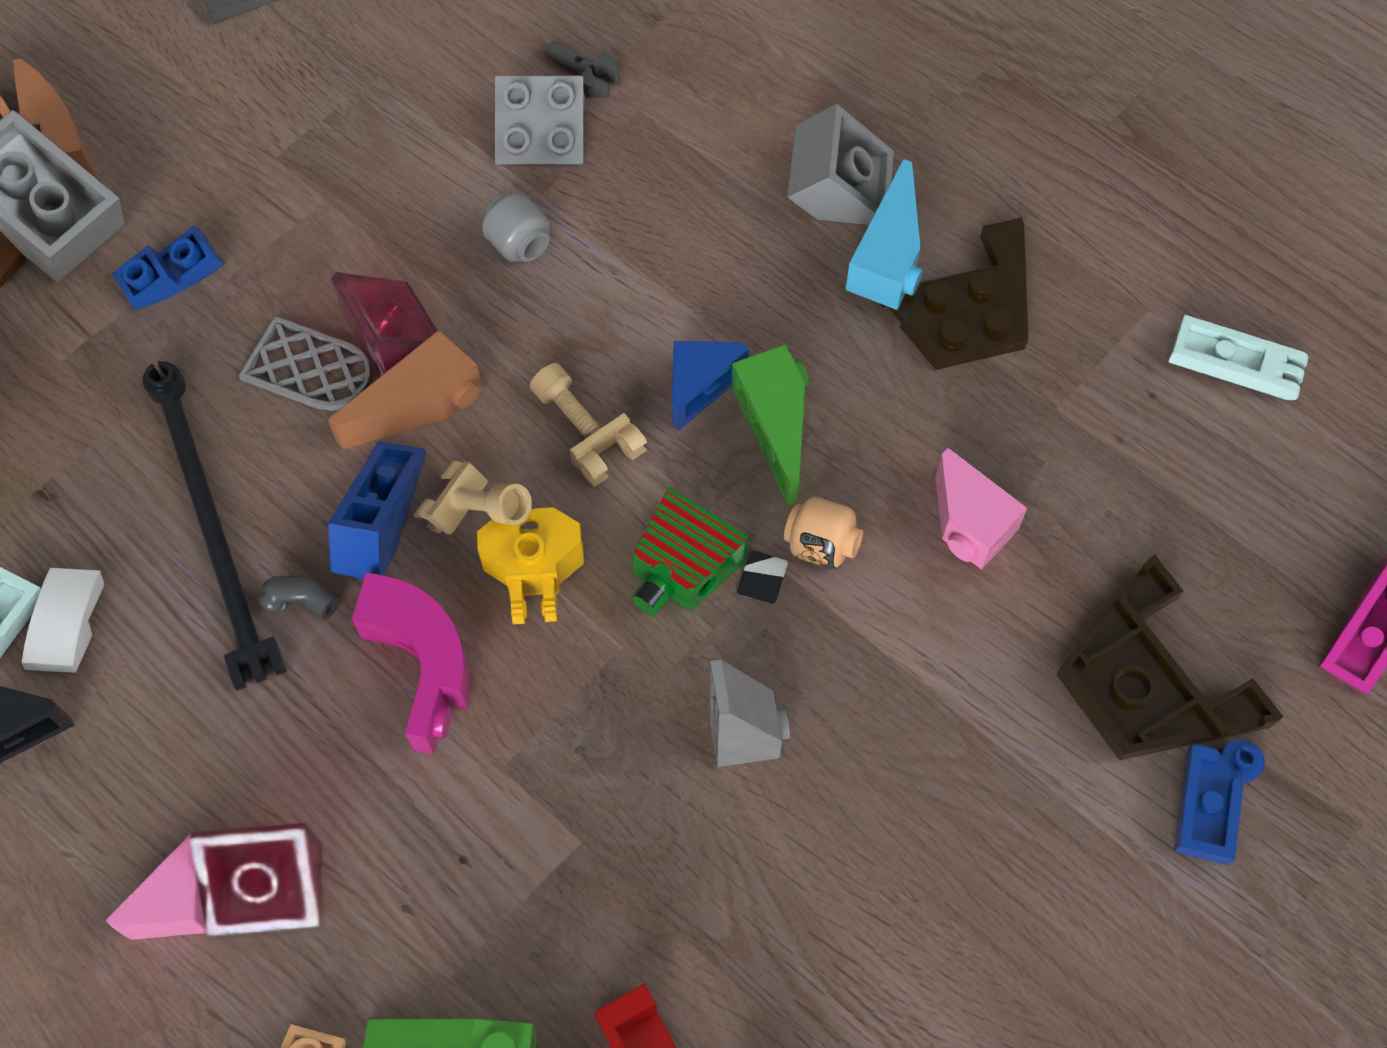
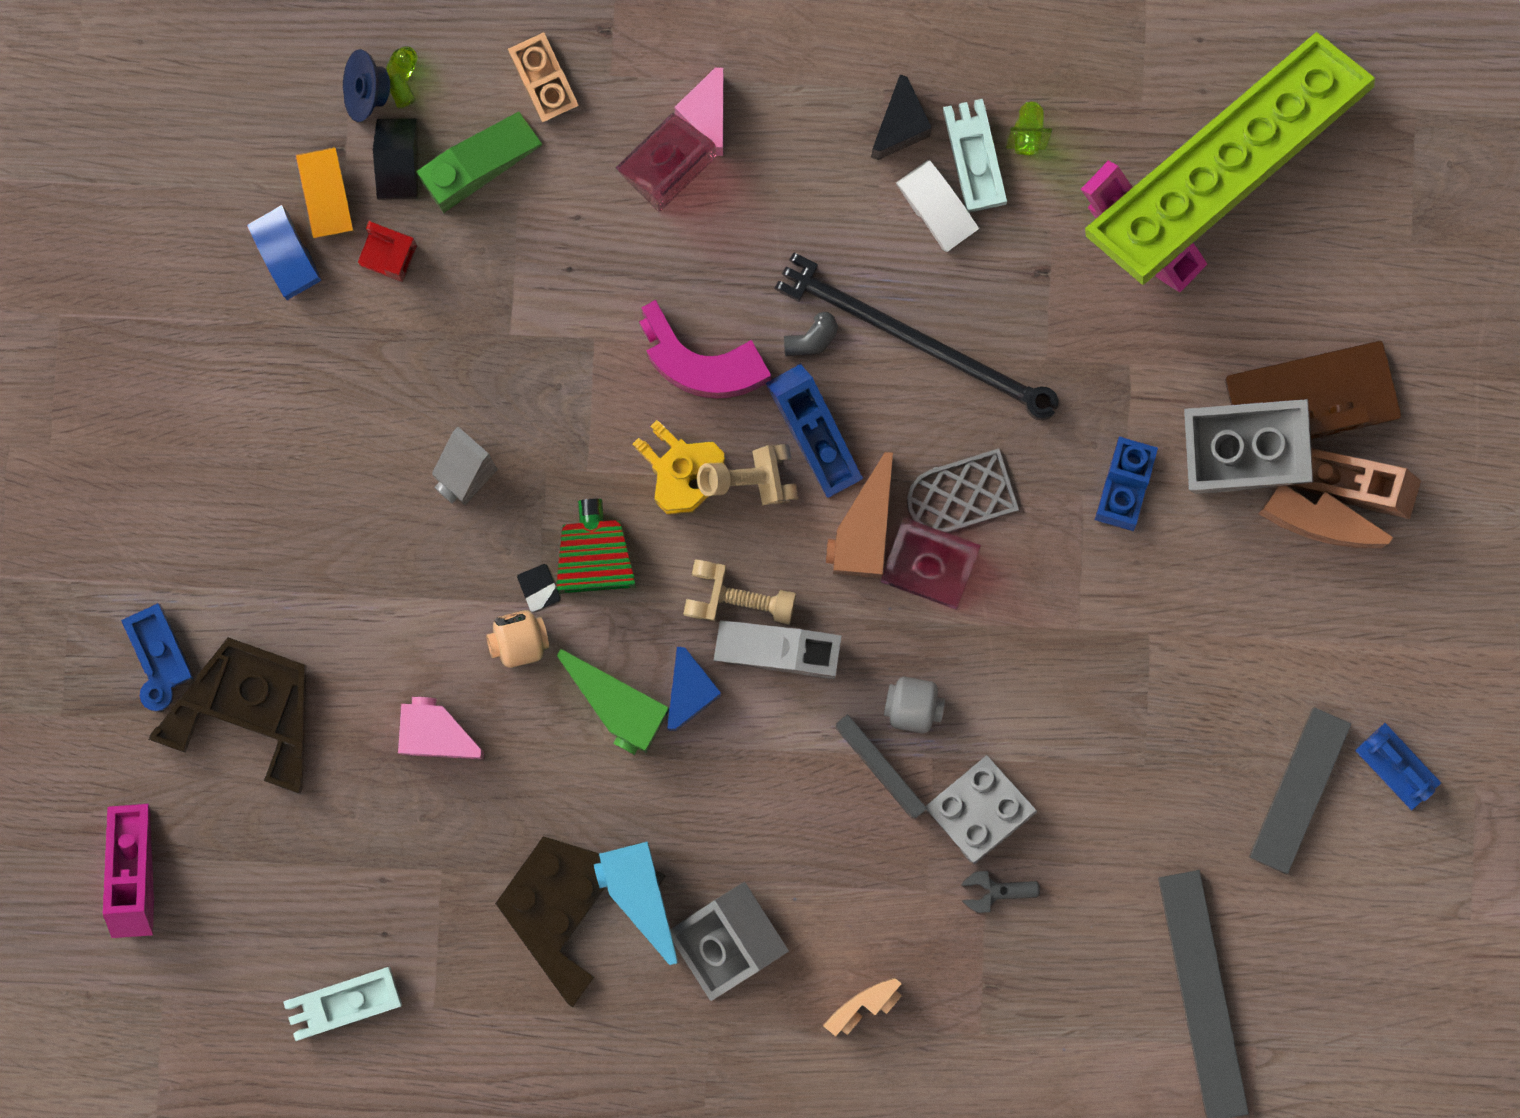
camera: 140 degrees right, 20 degrees up
(585, 344) = (778, 648): none -> light grey slope
(590, 204) = (880, 767): none -> dark grey tile
(756, 59) = (877, 997): none -> light nougat slope

